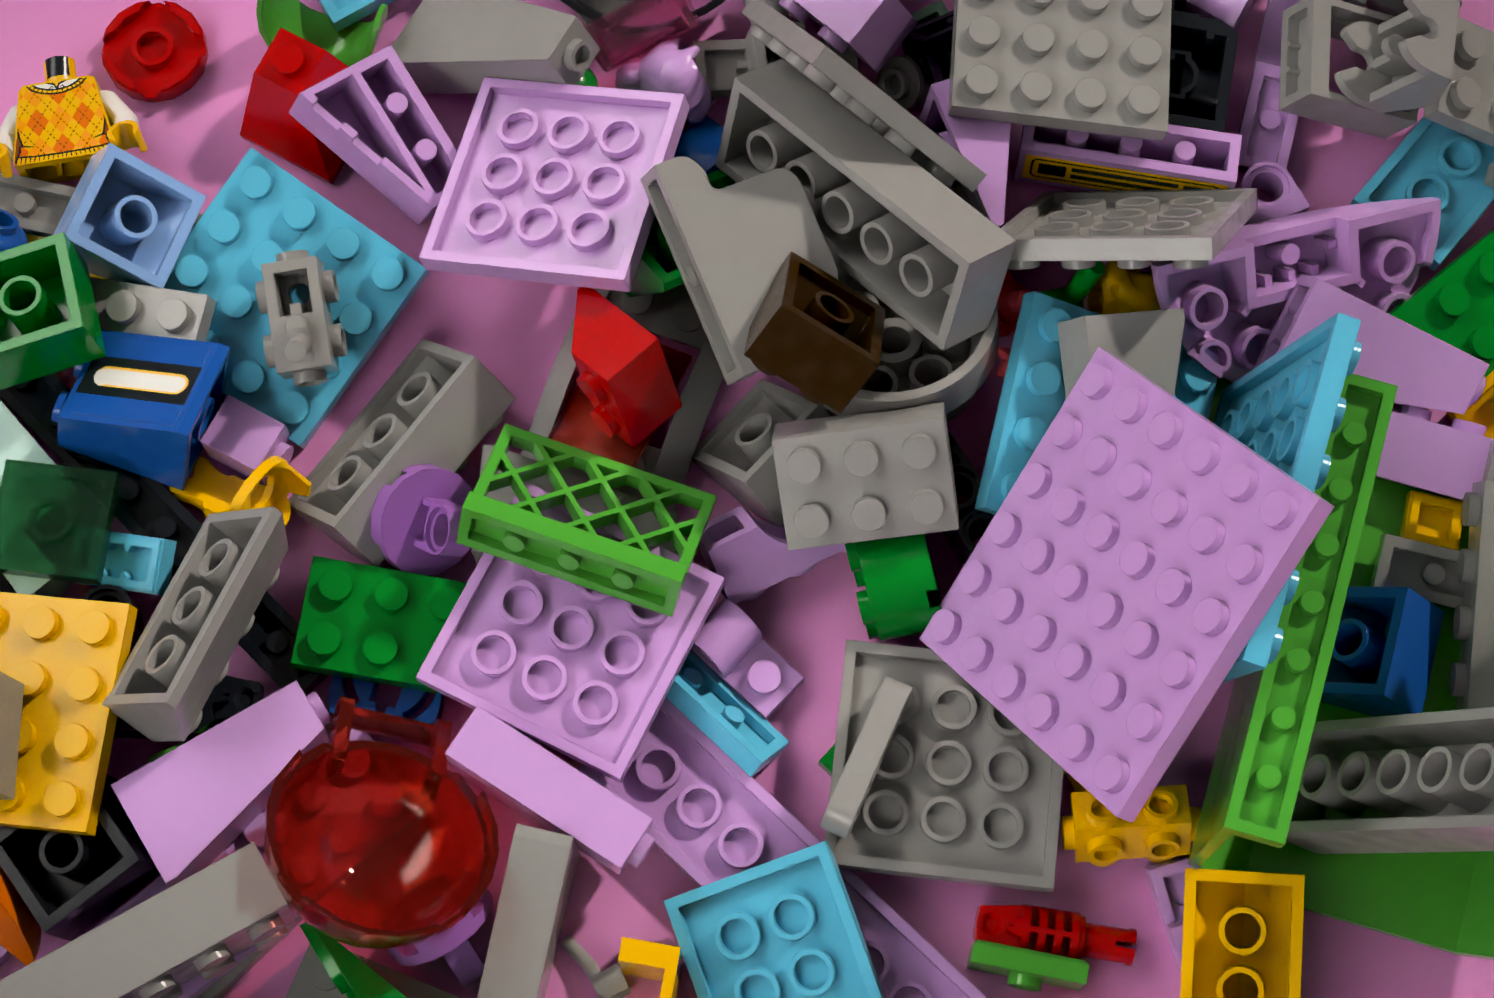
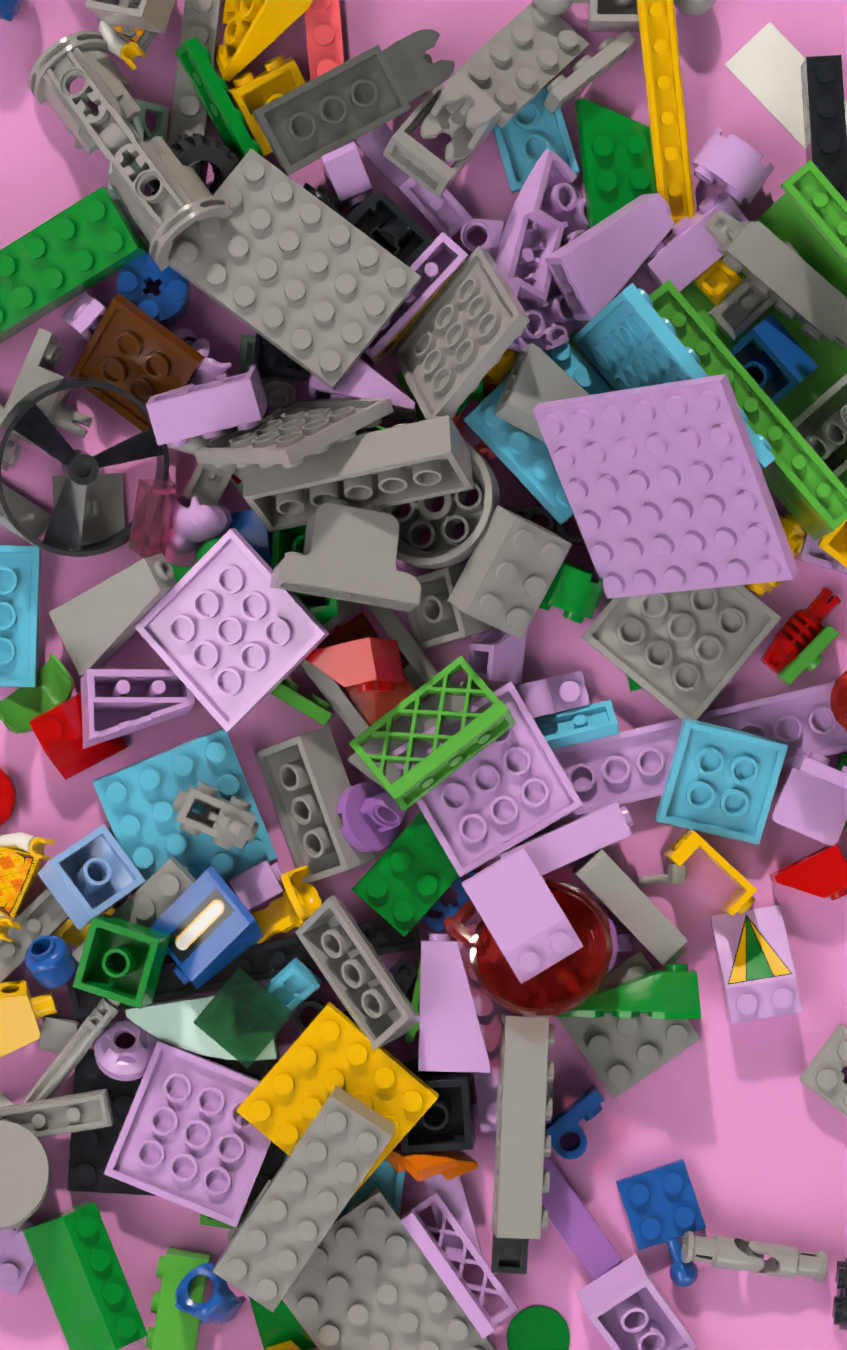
camera: 55 degrees left, 15 degrees up
(411, 782) = (522, 915): none -> lavender slope
(525, 323) = (312, 707): none -> bright green plate
(816, 334) = (422, 550): dark brown slope -> none
(866, 757) = (654, 669): light grey beam -> none

